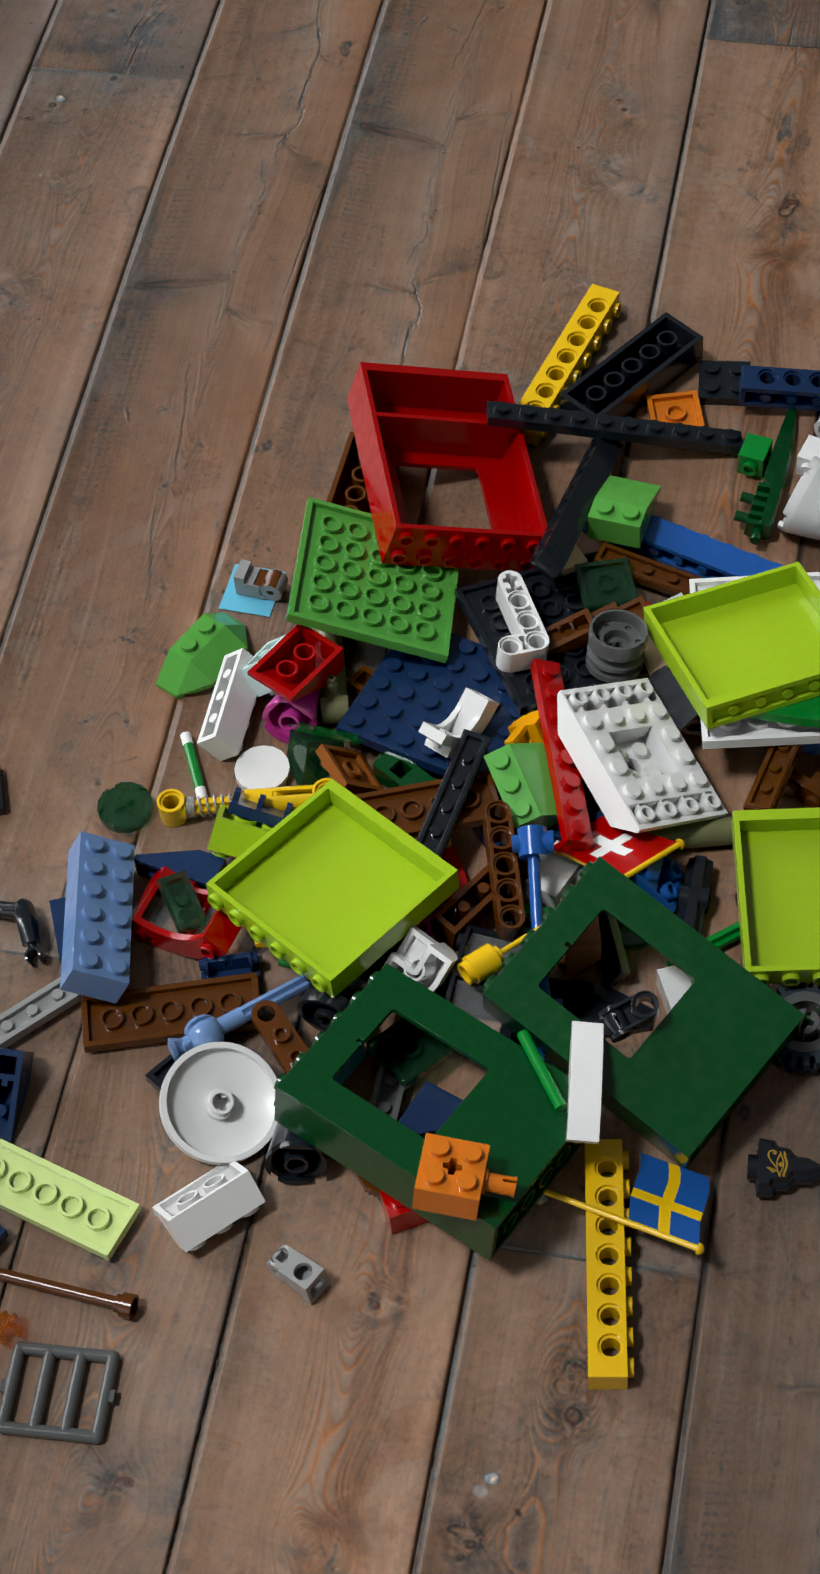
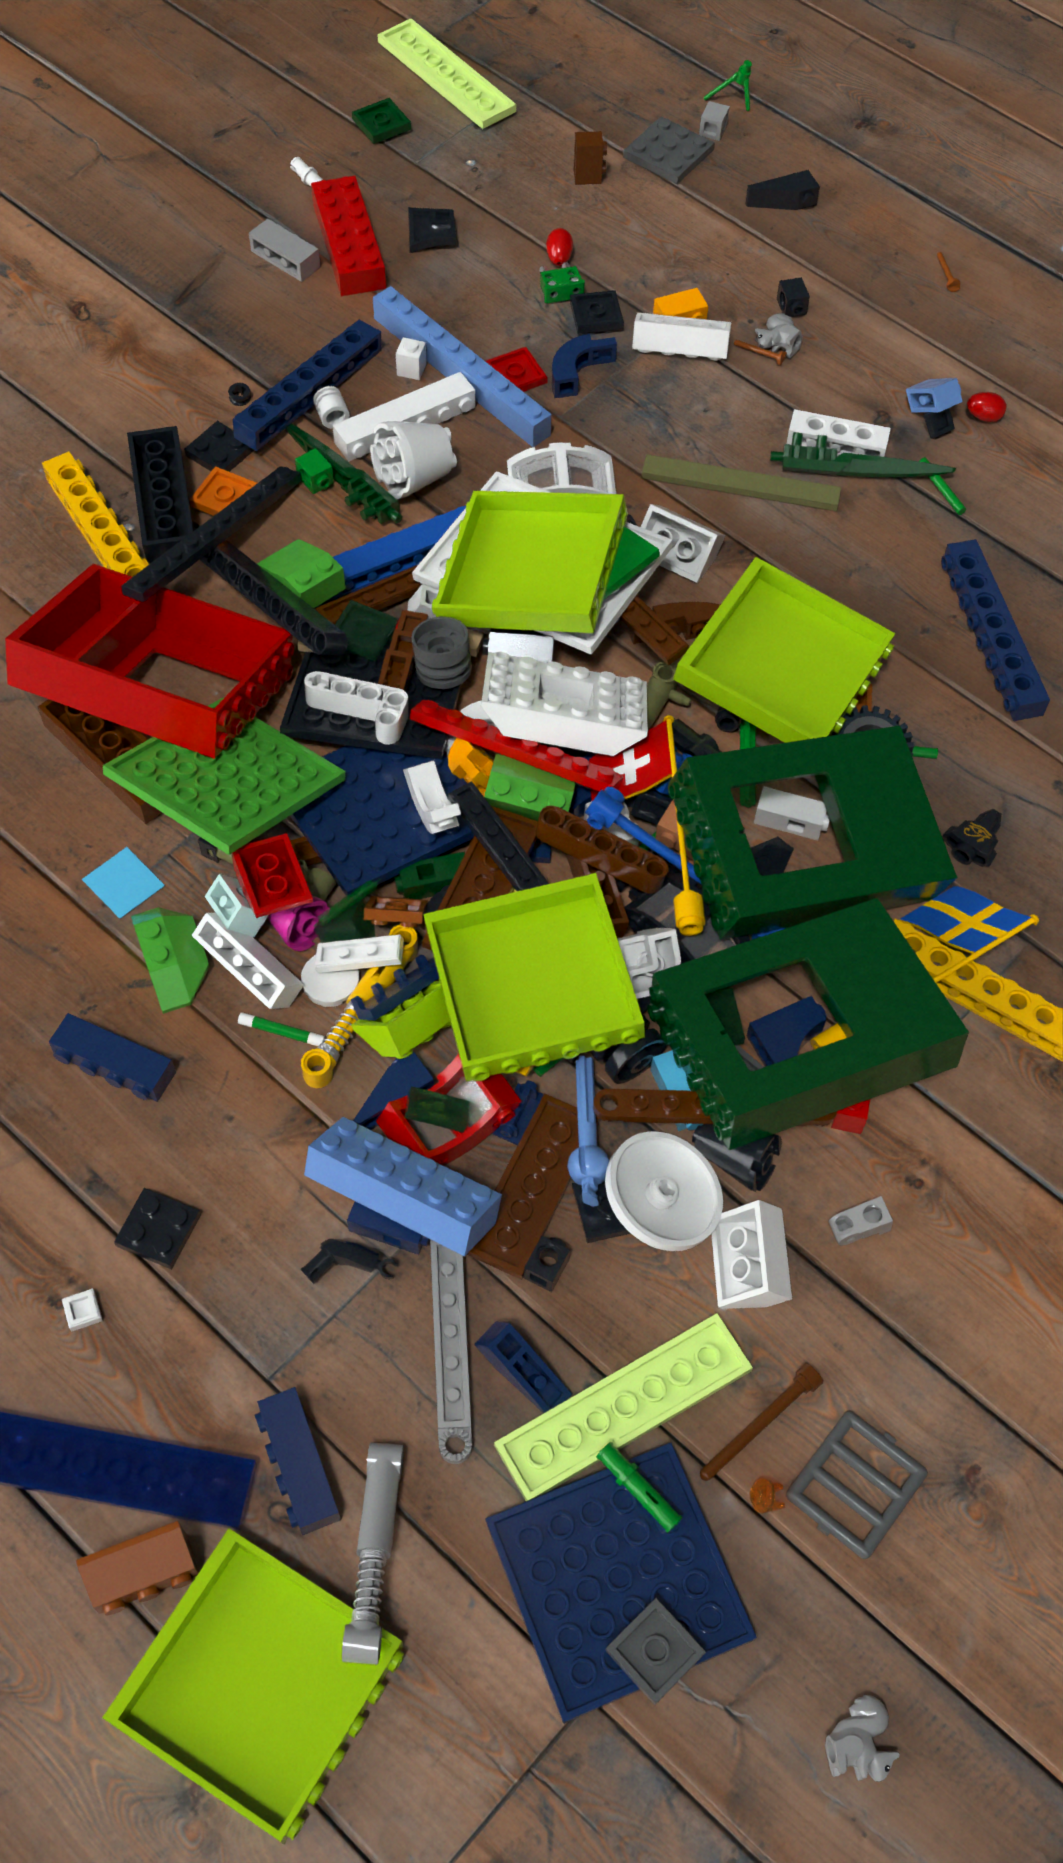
camera: 65 degrees left, 5 degrees up
(91, 677) = (112, 1057): none -> dark blue brick
(98, 1051) = (547, 1275): none -> black brick
(125, 807) = (279, 1108): clear green tile -> none
(259, 582) = (127, 868): light grey leg -> none
(288, 770) = (359, 953): none -> white tile
(454, 1177) = (916, 1029): orange brick -> none
(542, 1071) = (833, 921): green bar -> none
(585, 1082) = (863, 892): white slope -> none
(628, 1016) = (832, 832): black piece -> none
(792, 353) = (239, 388): none -> black bush

